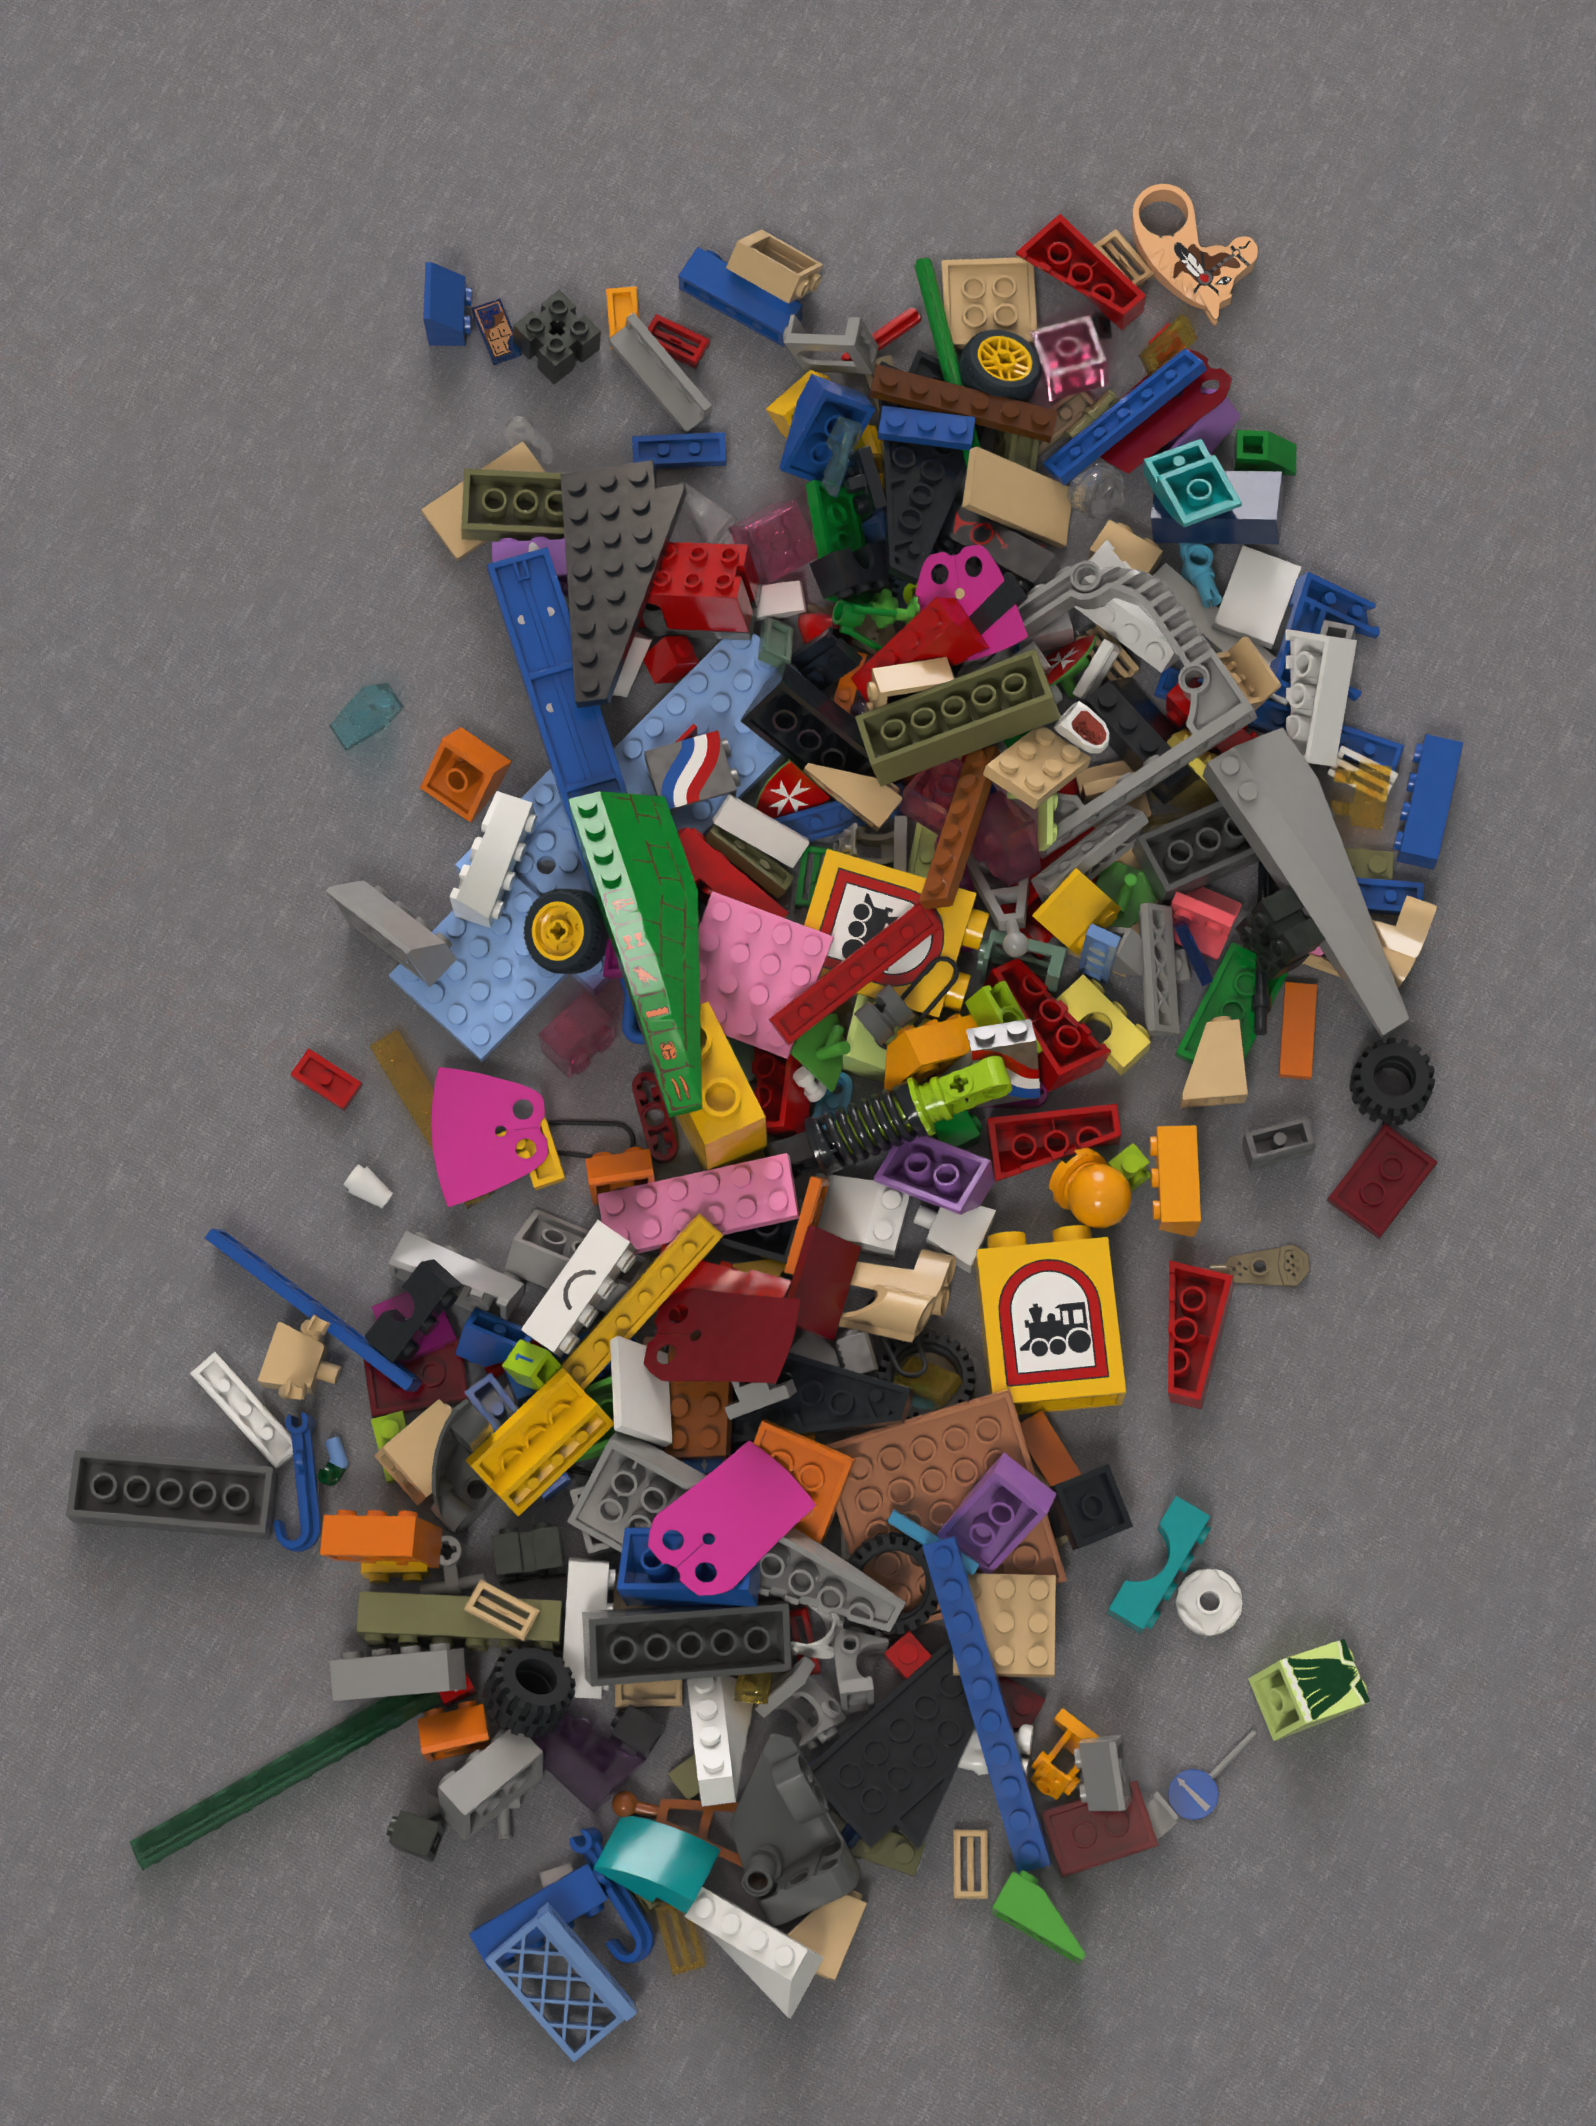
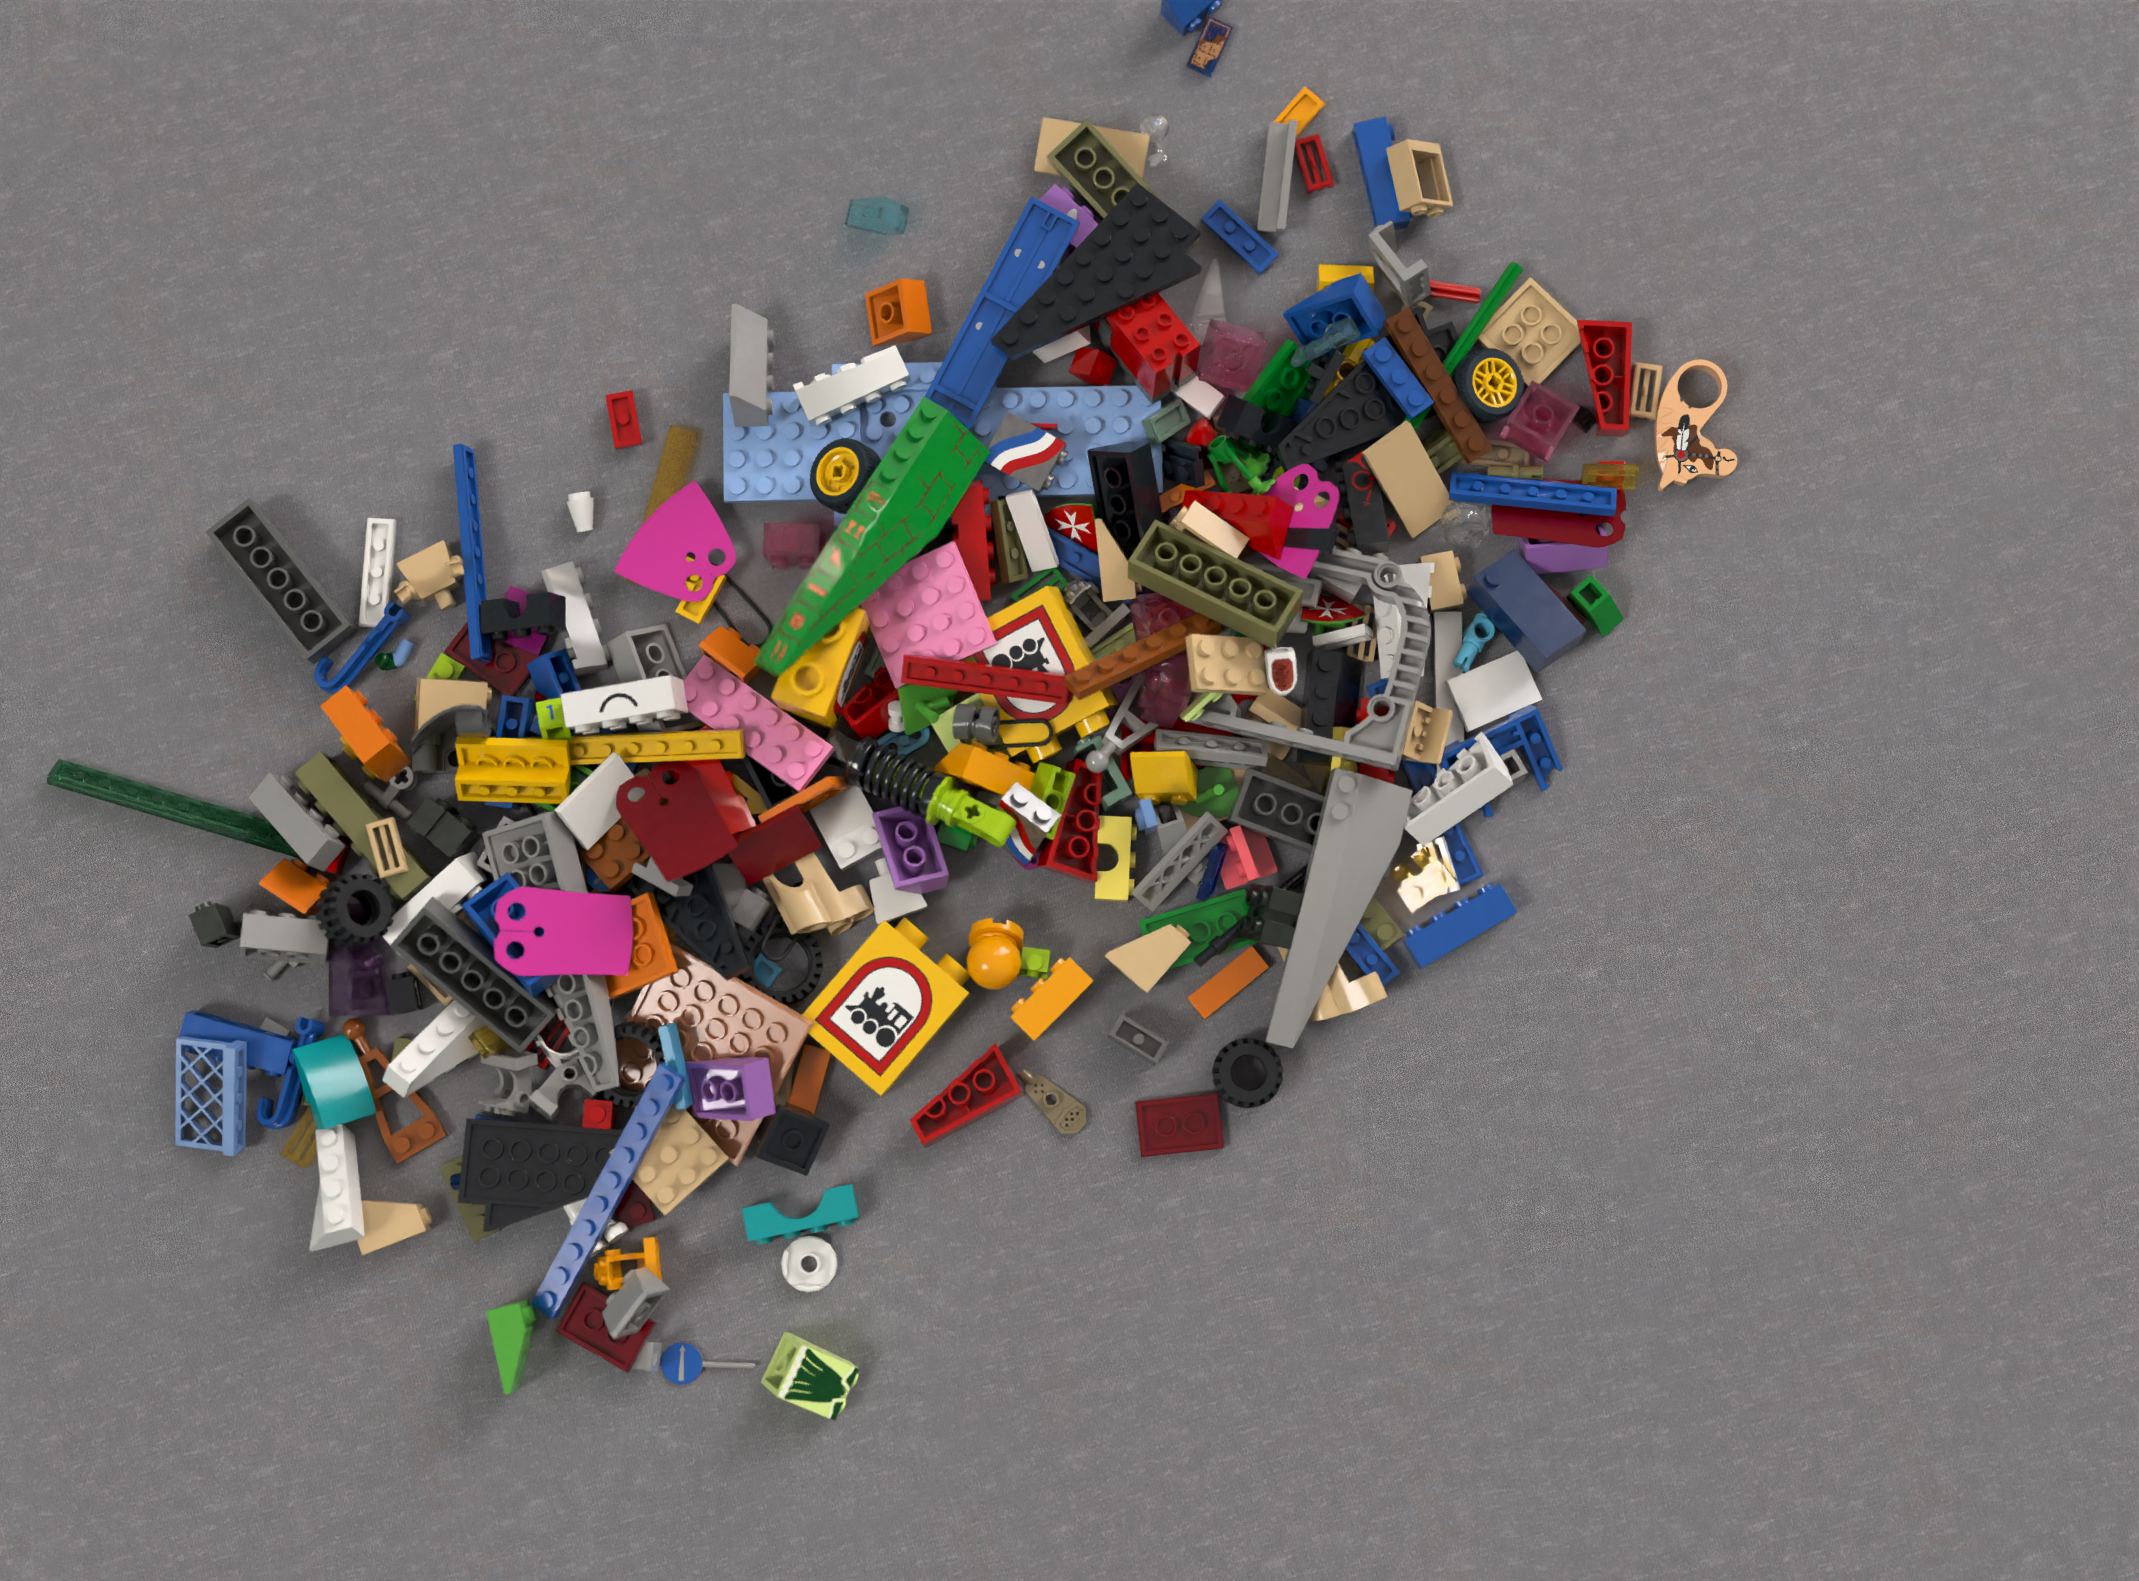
camera: 45 degrees right, 10 degrees up
(556, 337) = (1227, 98): pearl dark grey brick -> none
(790, 1837) = (417, 1150): dark grey panel -> none
(934, 1385) = (781, 974): clear yellow tile -> none
(970, 1893) = (530, 1252): tan tile -> none
(1039, 1138) = (1001, 893): red wedge -> none
(1190, 483) = (1518, 581): teal slope -> none

